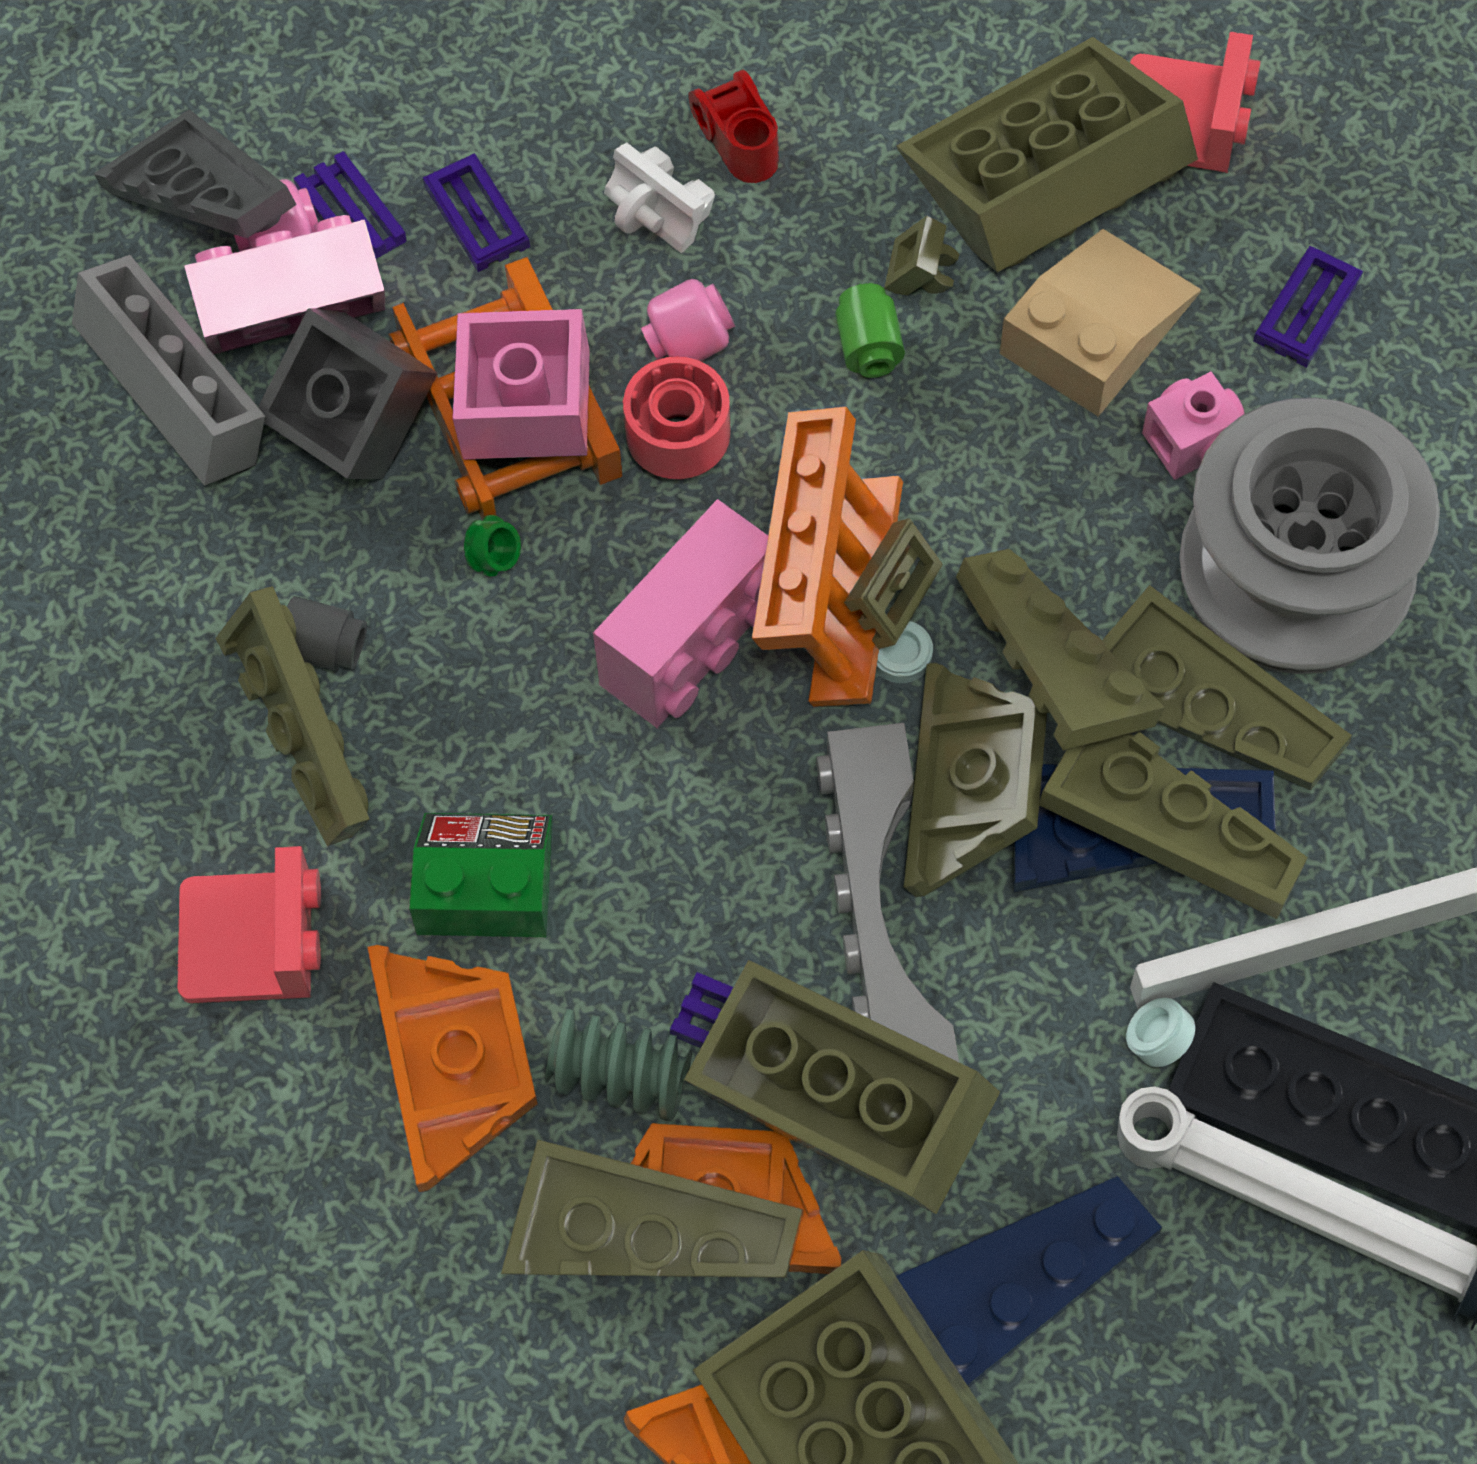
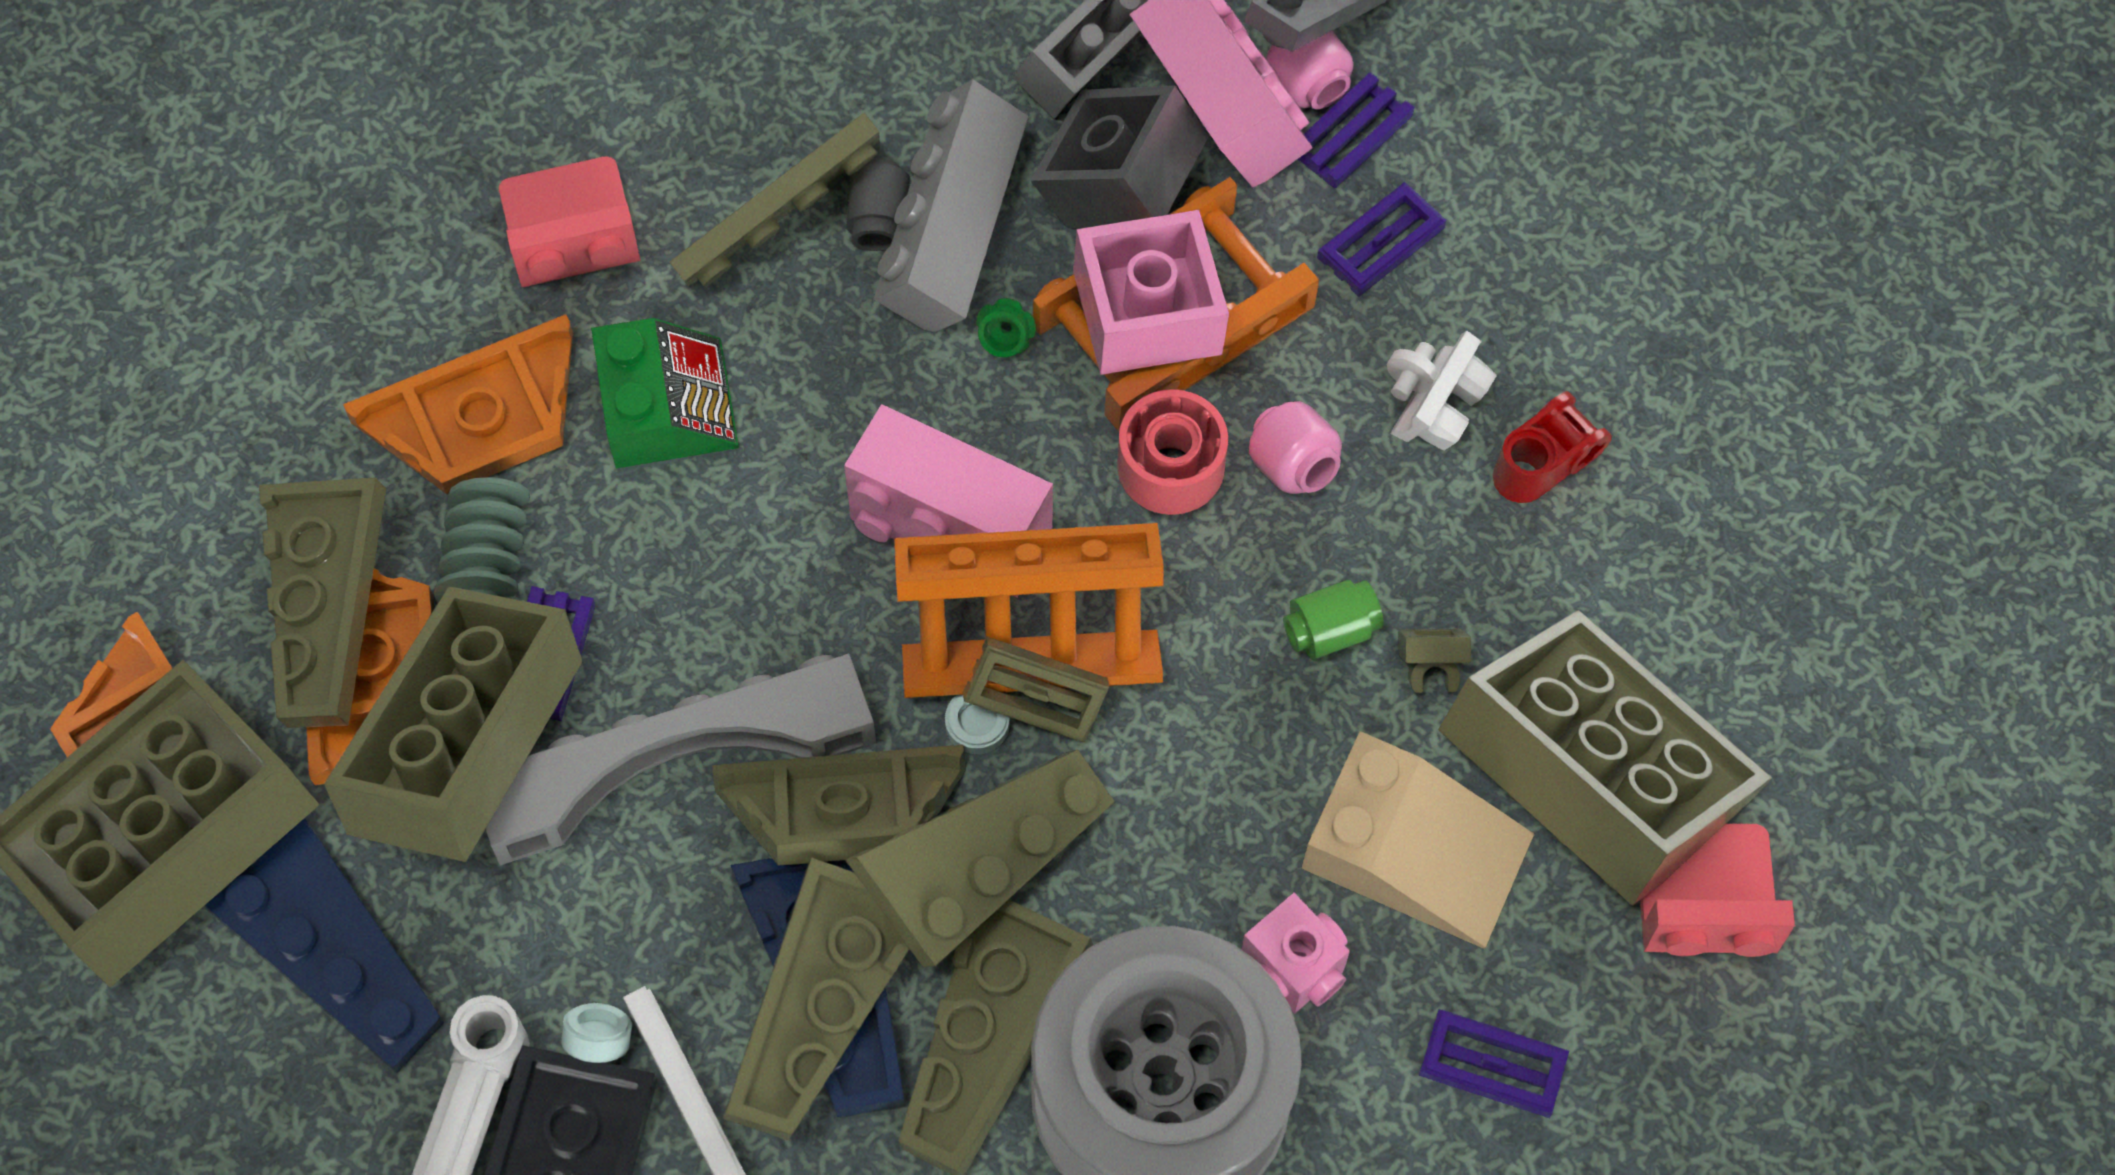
camera: 75 degrees right, 0 degrees up
(348, 560) = (950, 207): none -> light grey brick

